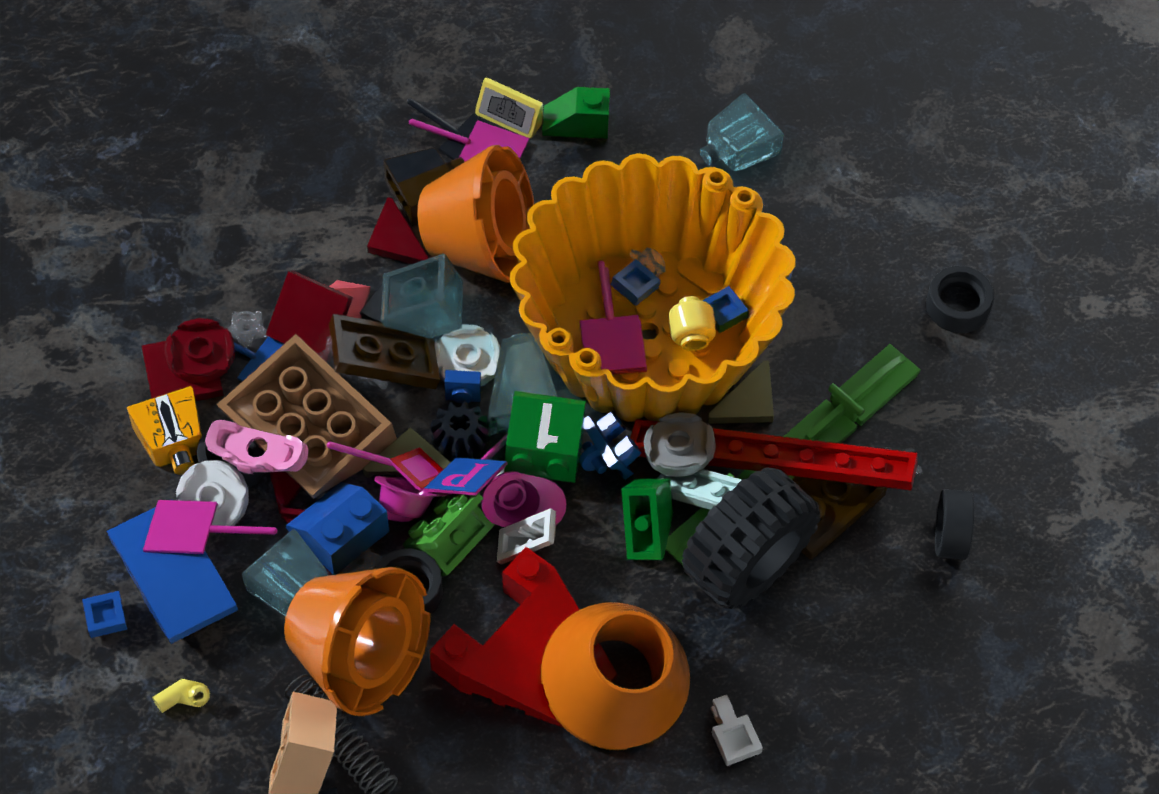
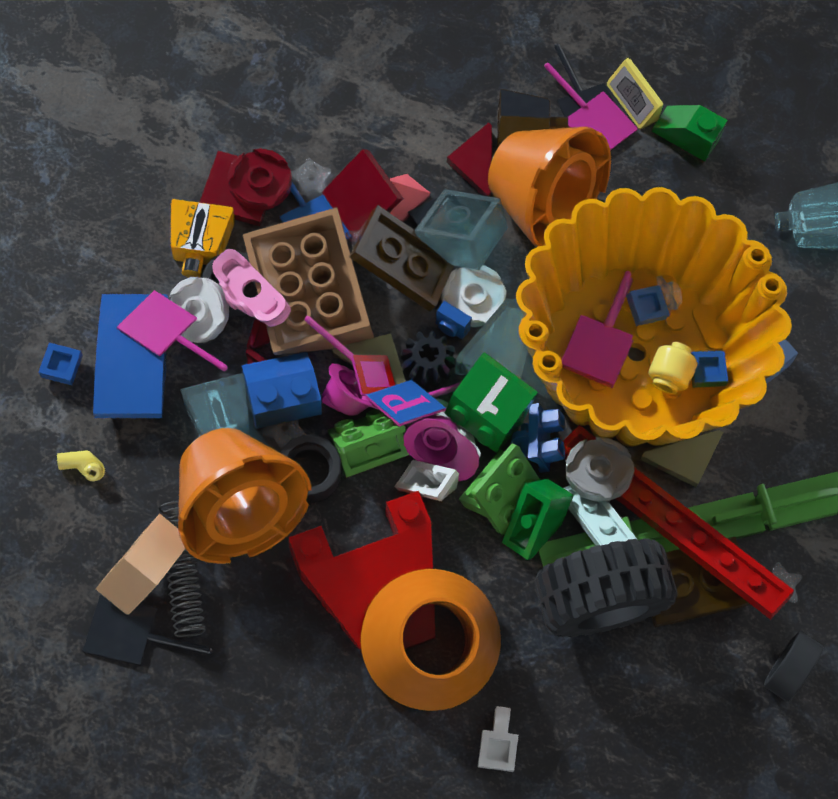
camera: 25 degrees right, 10 degrees up
(597, 509) = (499, 487): none -> bright green bracket

